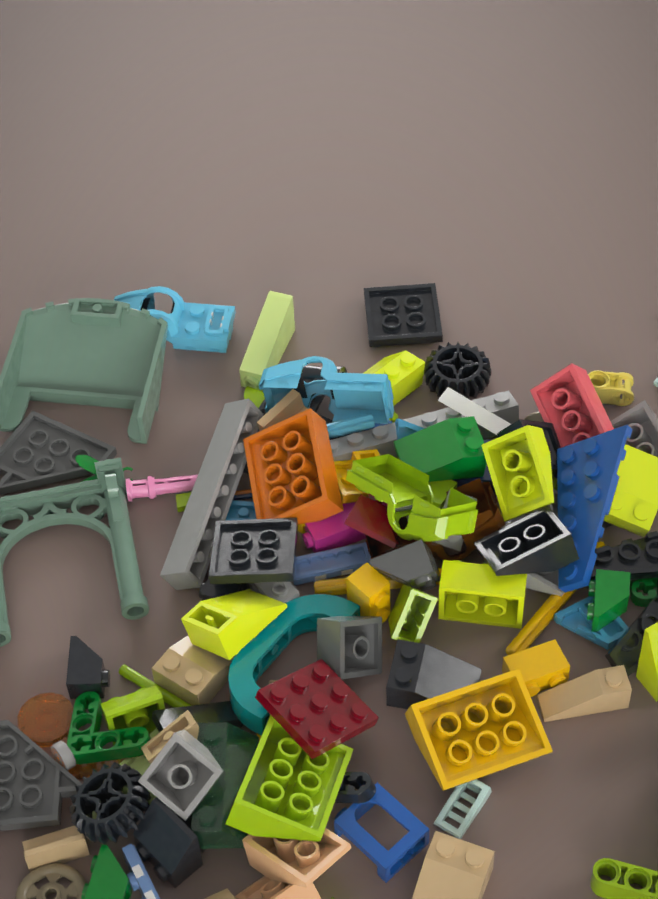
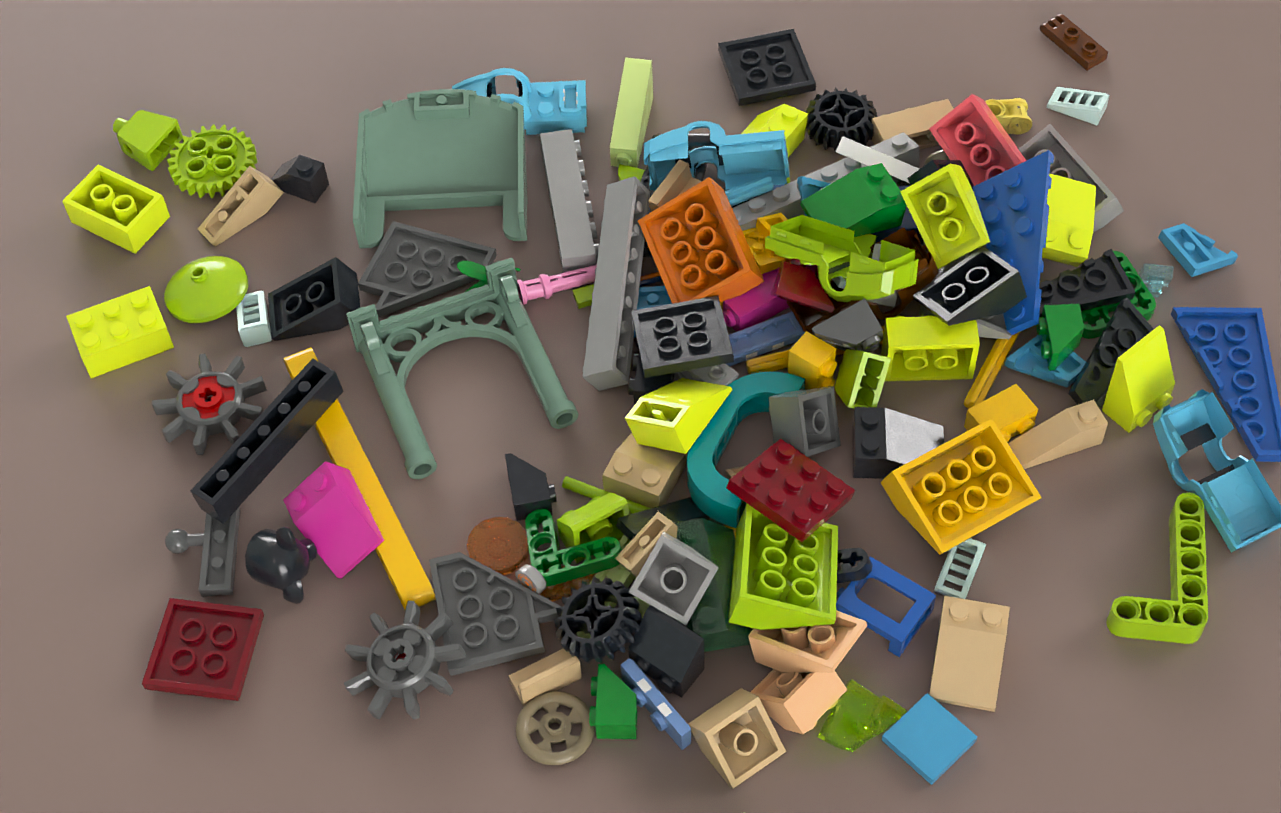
camera: 10 degrees left, 5 degrees up
(192, 411) = (568, 200): none -> light grey brick
(518, 383) = (913, 122): none -> tan brick

